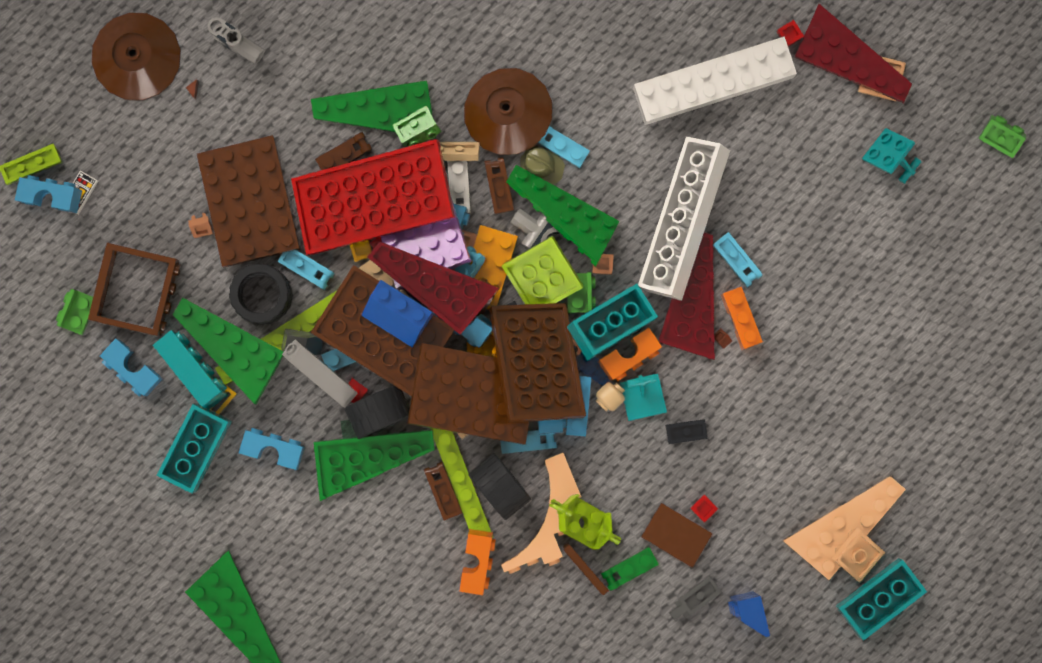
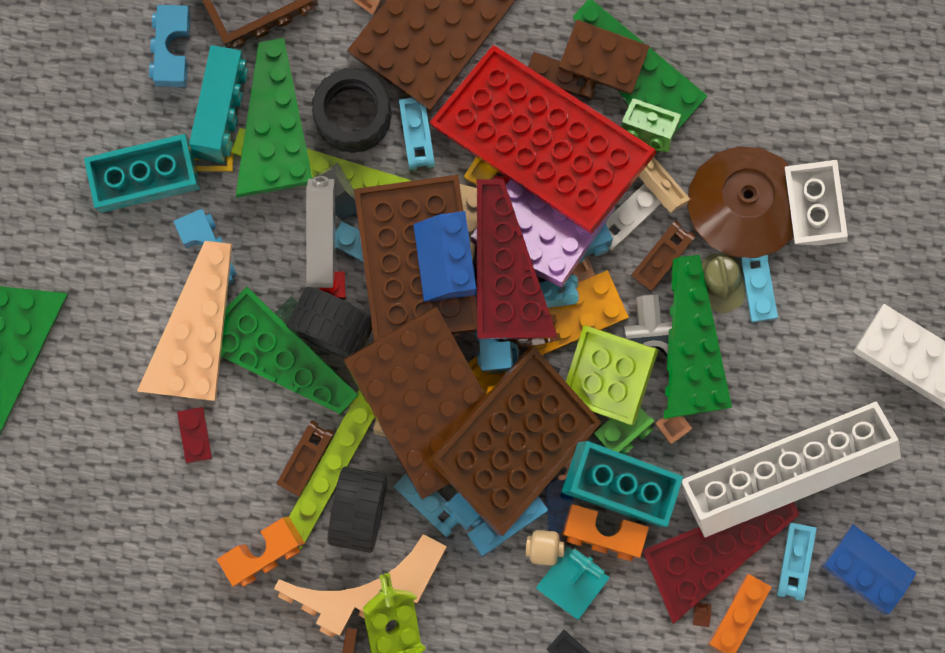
camera: 55 degrees right, 5 degrees down
(320, 502) = (191, 344): none -> light nougat wing
(354, 121) = (603, 57): none -> reddish brown plate
(375, 544) = (194, 435): none -> dark red plate
(543, 72) = (816, 203): none -> white slope
(777, 222) = (869, 570): none -> blue slope

